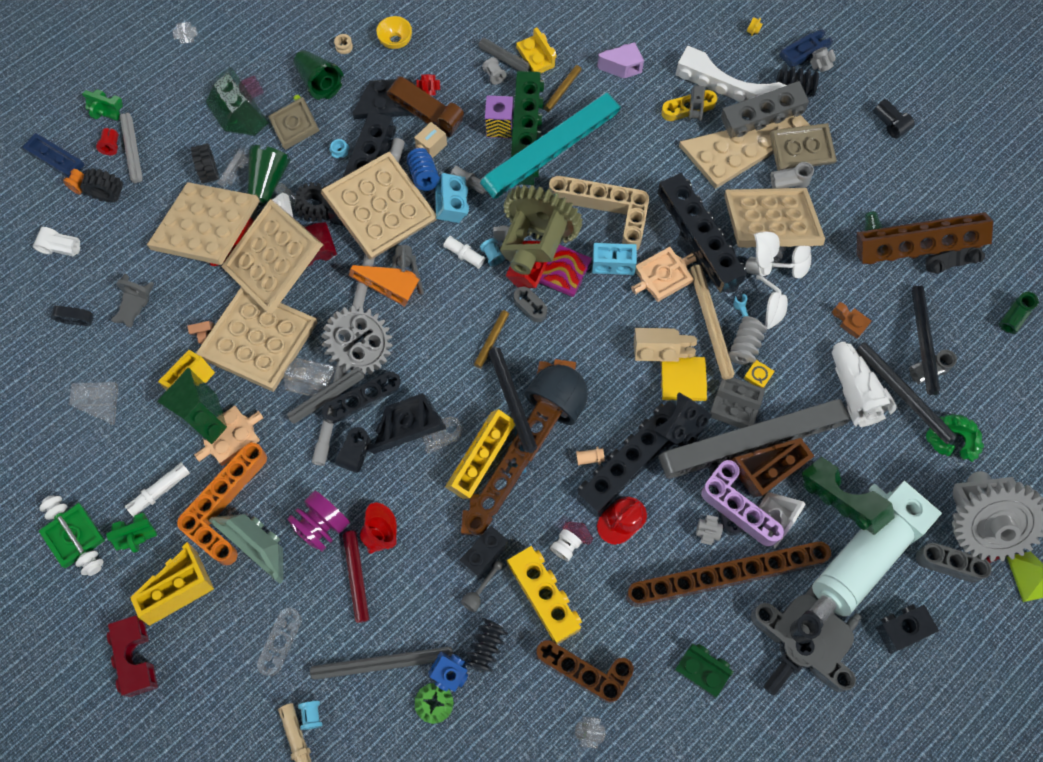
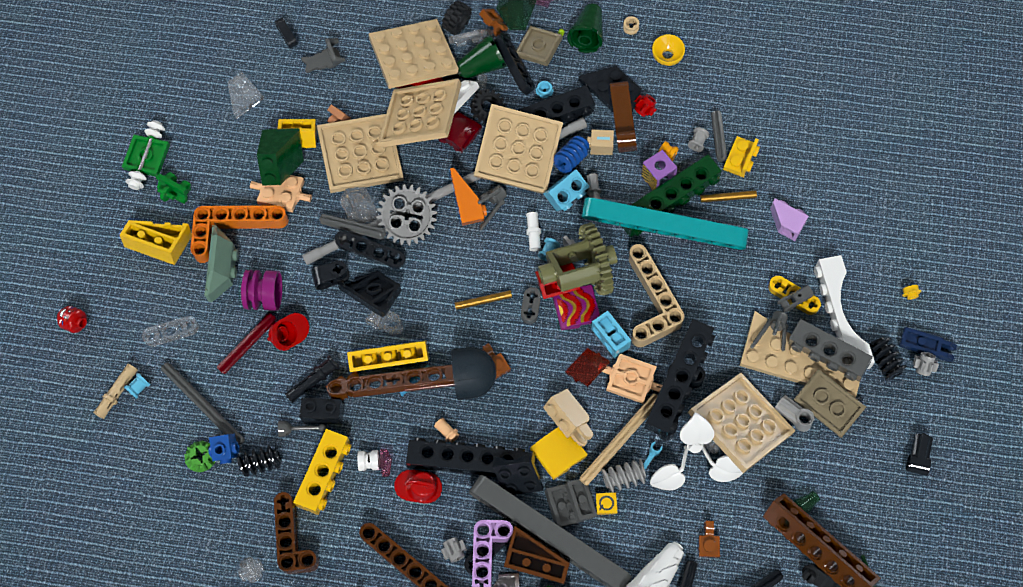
camera: 55 degrees right, 0 degrees up
(124, 638) = (105, 239): dark red arch -> none
(157, 489) = (213, 179): white pin -> none
(181, 733) = (71, 318): none -> red head
(231, 140) = (491, 18): none -> dark orange plate
(297, 153) = (514, 63): none -> black beam
(444, 529) = (320, 373): none -> black pin
(481, 99) = (669, 150): none -> light orange wheel
(513, 401) = (440, 348): black axle -> none
(626, 299) = (587, 367): none -> clear red piece
(708, 131) = (777, 323): none -> dark grey plant

